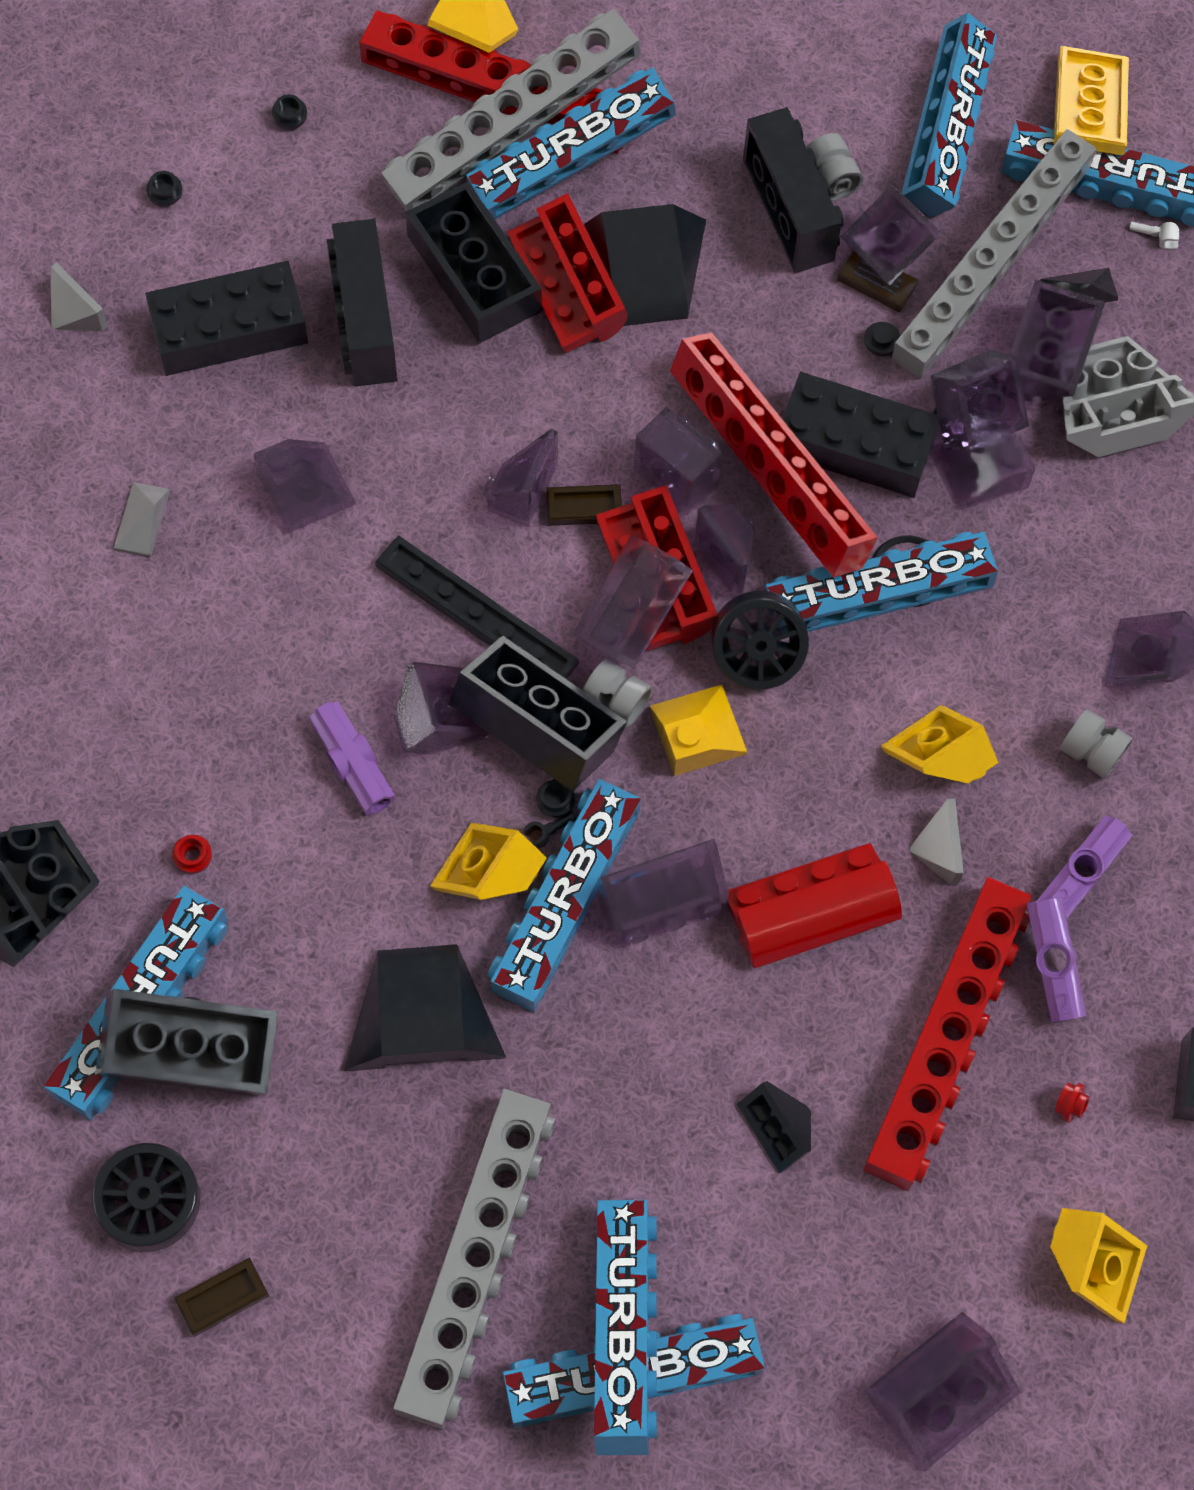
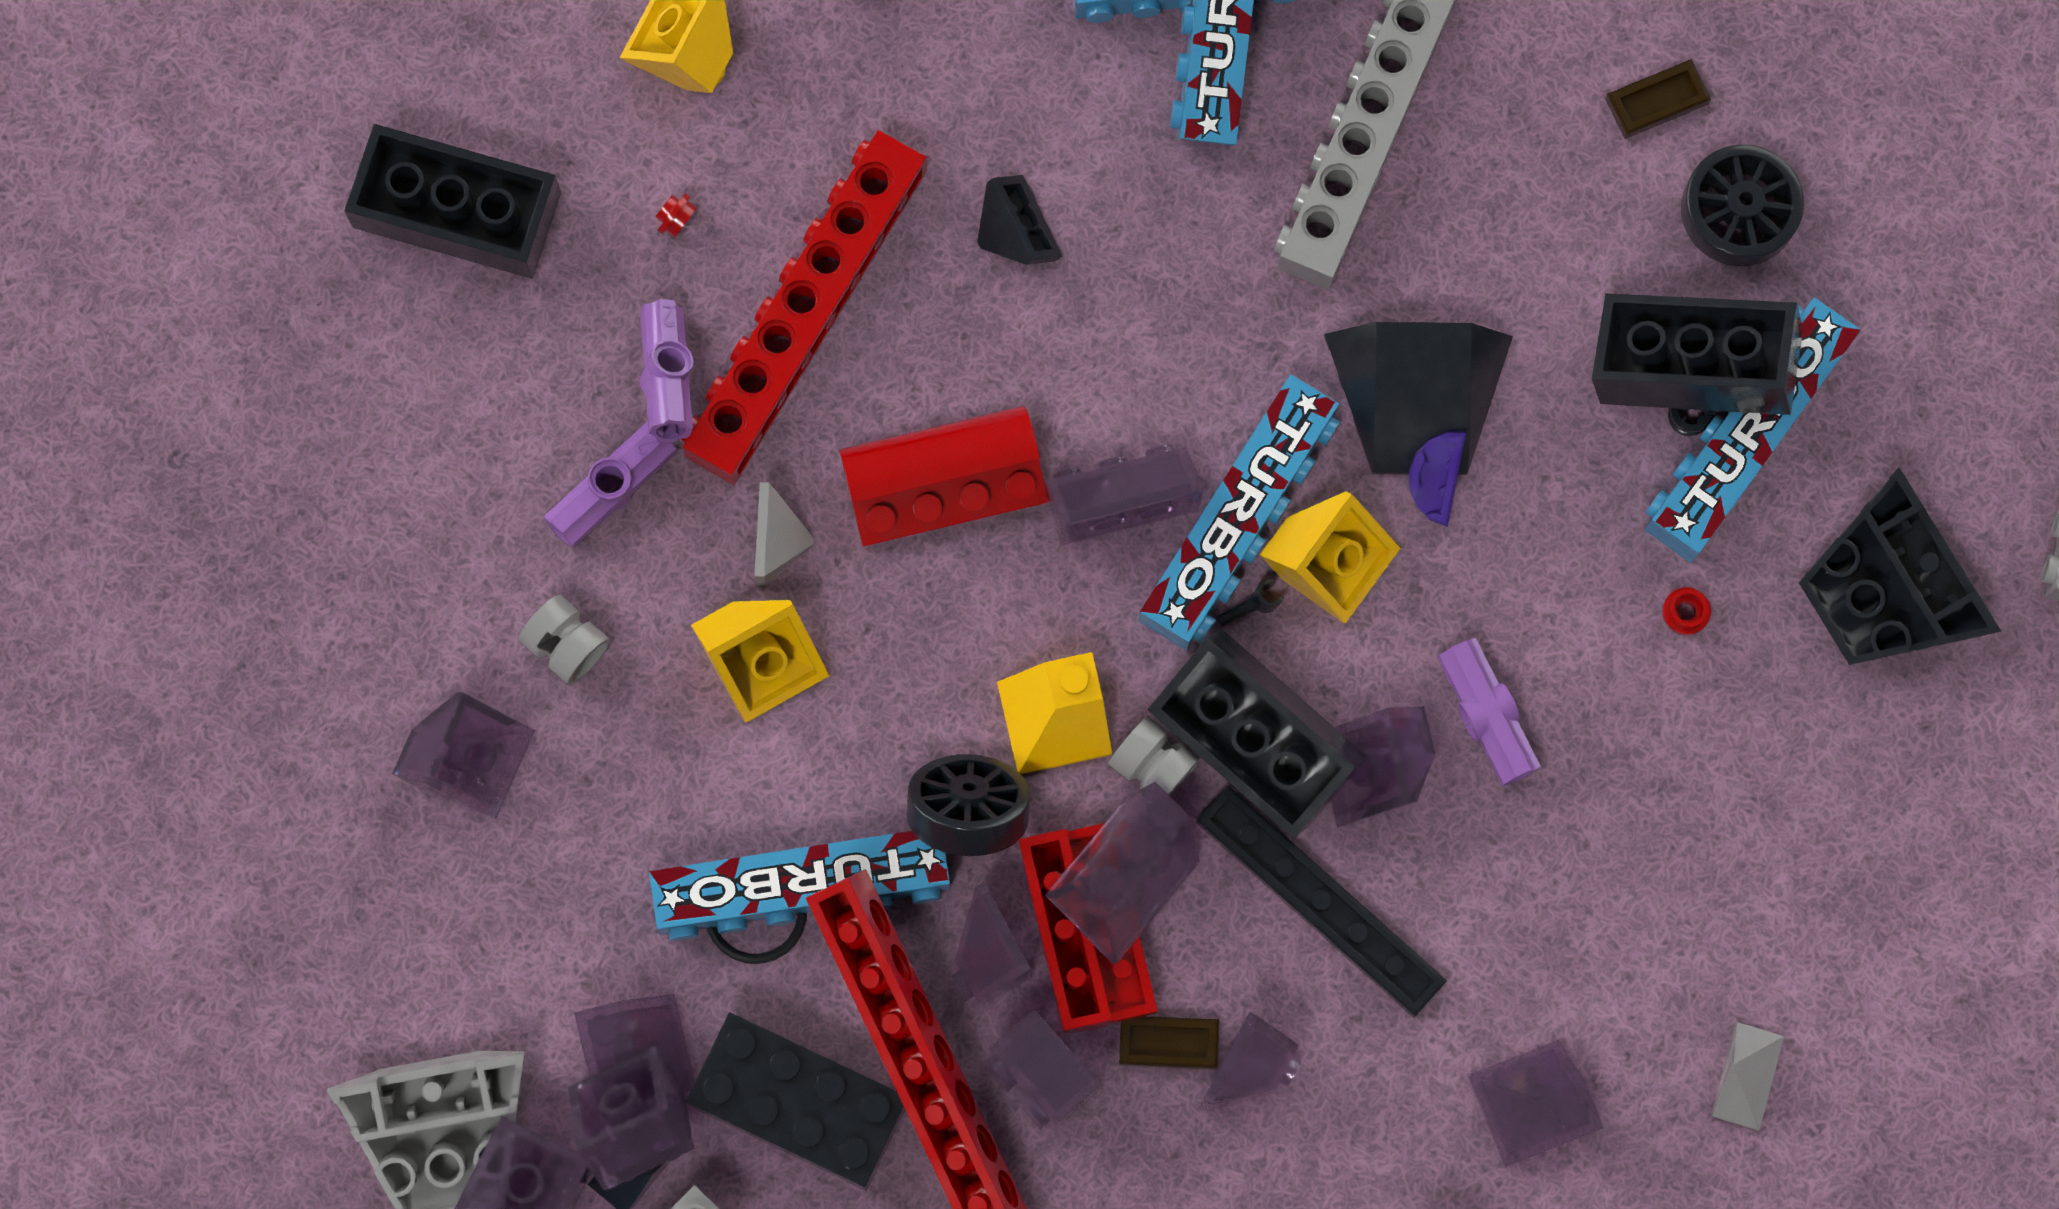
camera: 175 degrees left, 10 degrees up
(404, 941) = (1435, 475): none -> dark purple tile
(555, 799) = (1246, 633): black plate -> none

